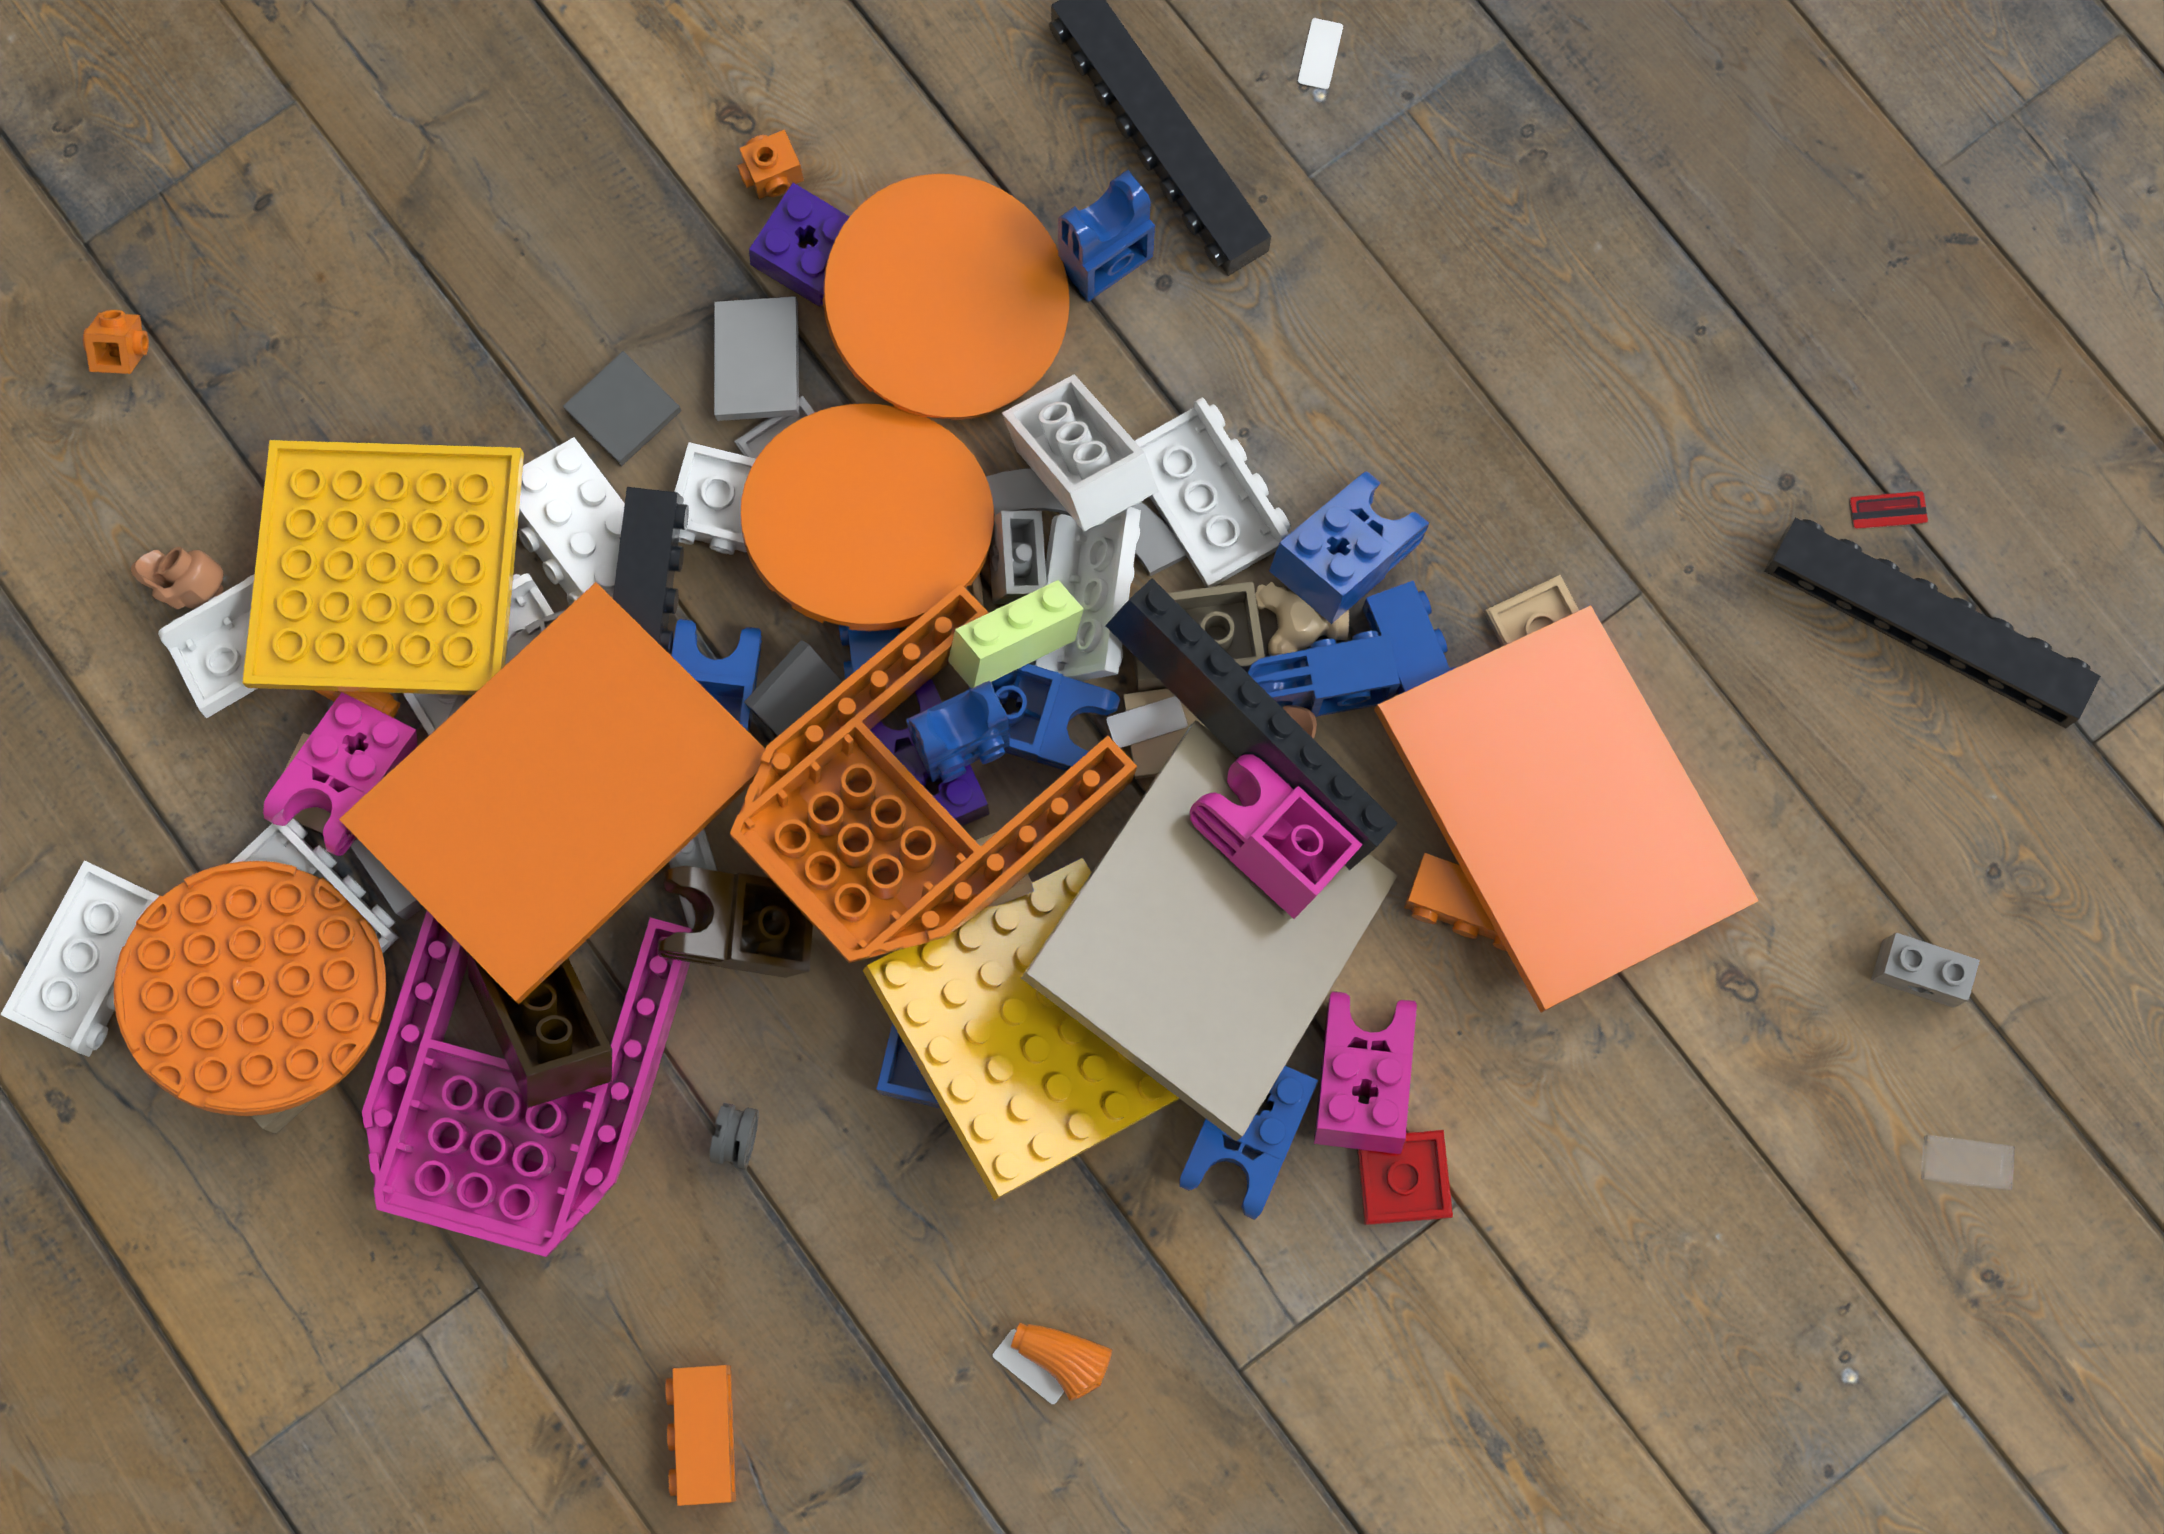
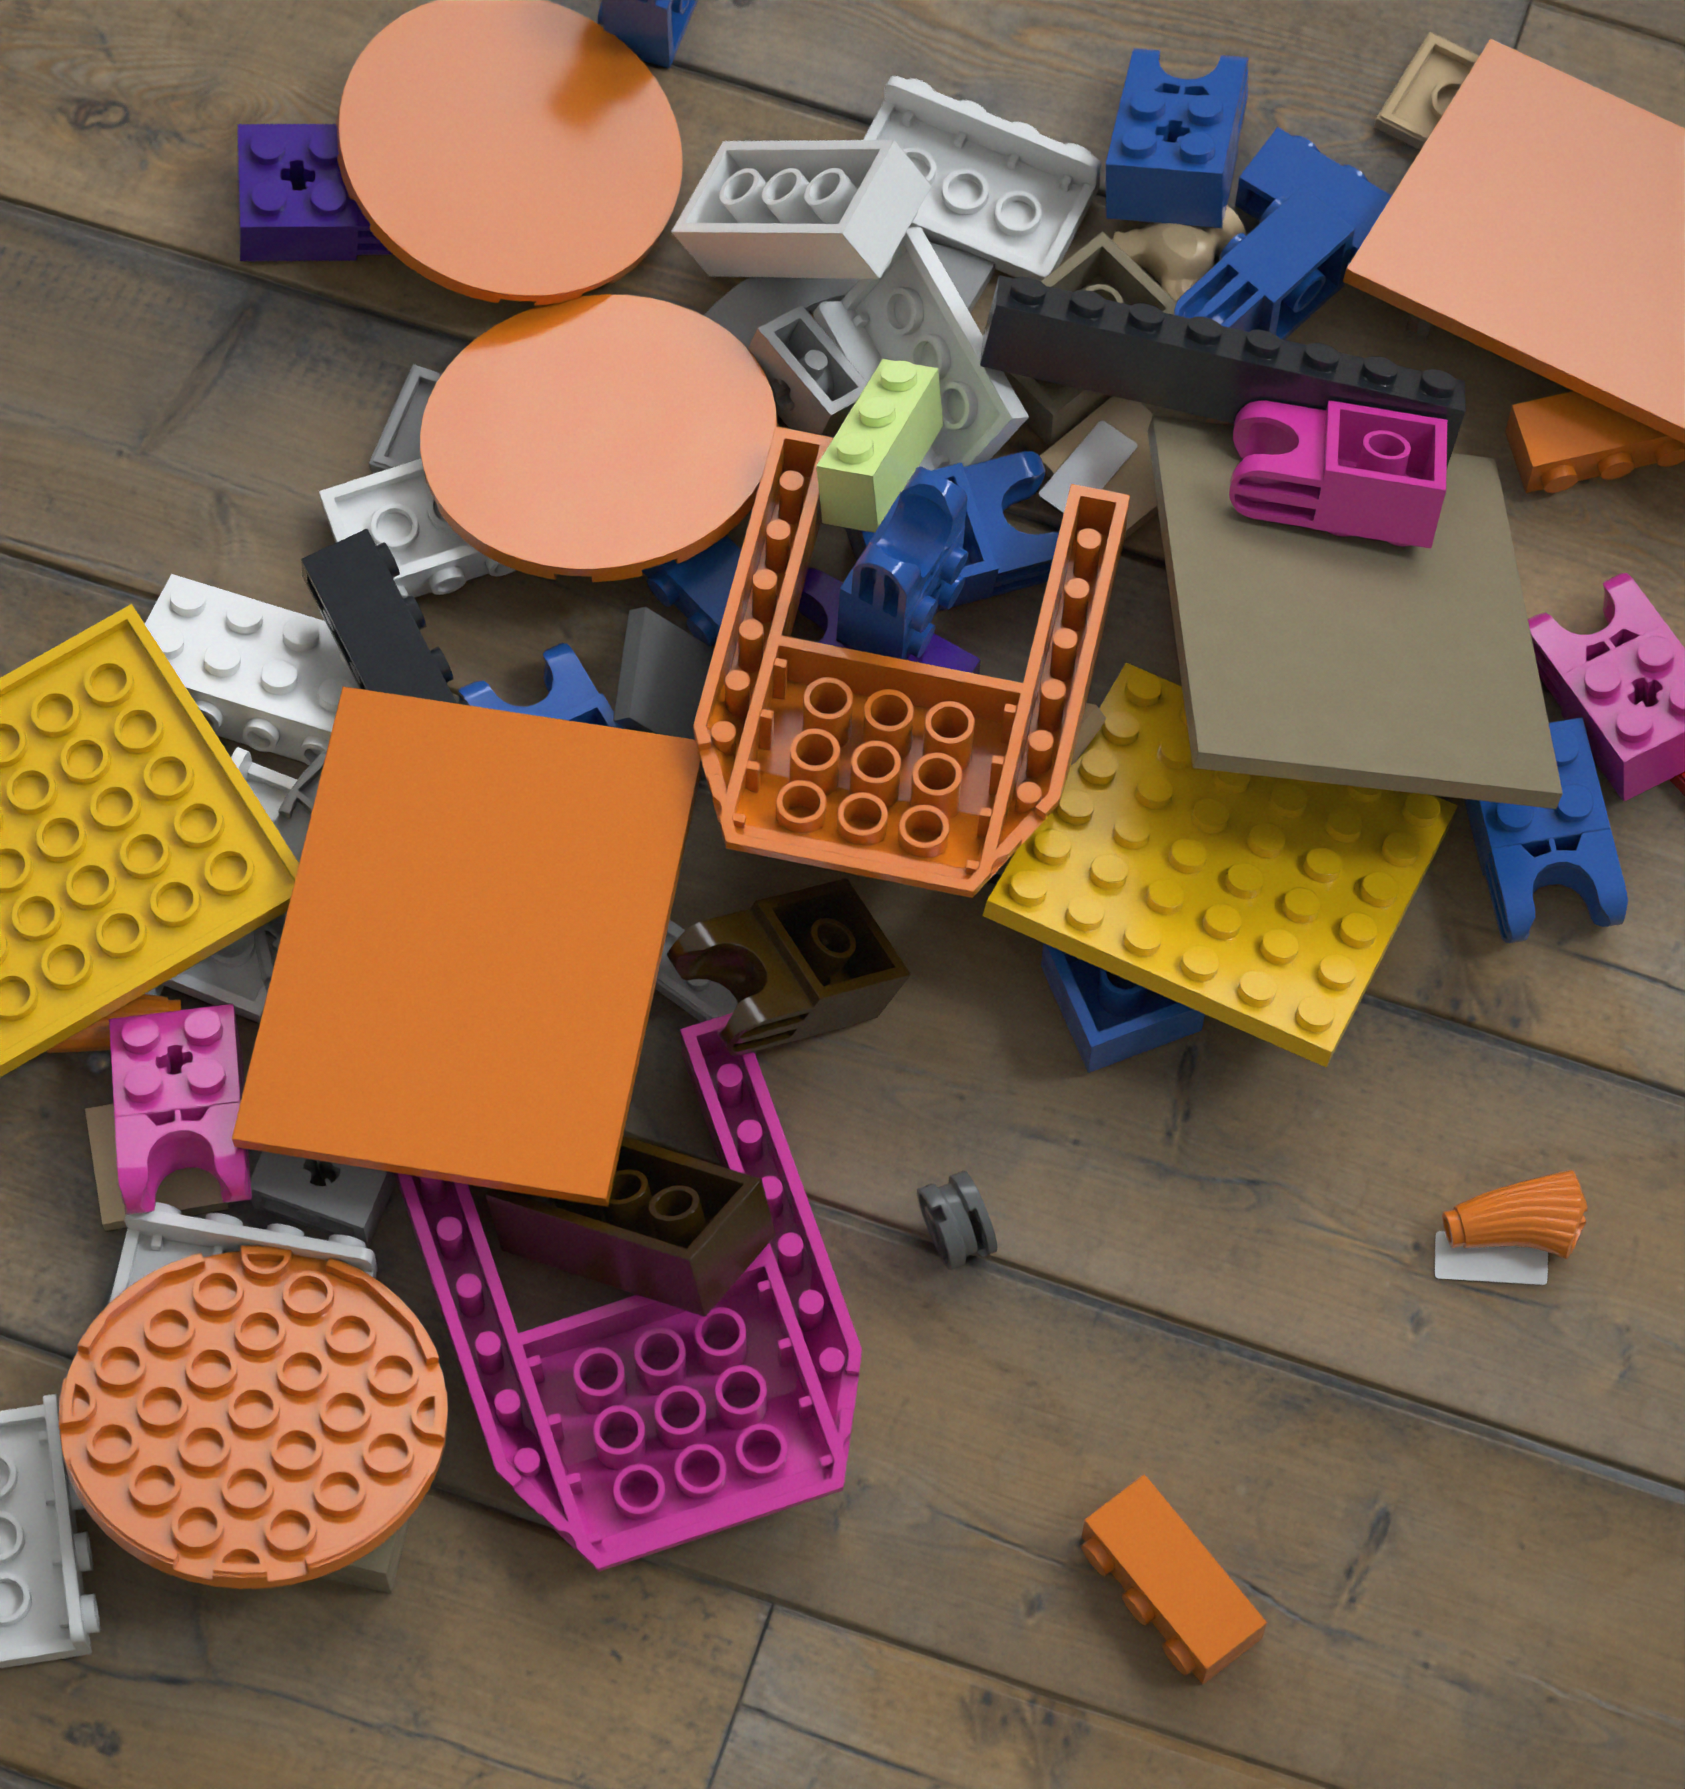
camera: 35 degrees left, 10 degrees down
(622, 408) = (204, 509): dark grey tile -> none
(756, 359) = (328, 355): light grey tile -> none
(769, 165) = (188, 130): orange brick -> none

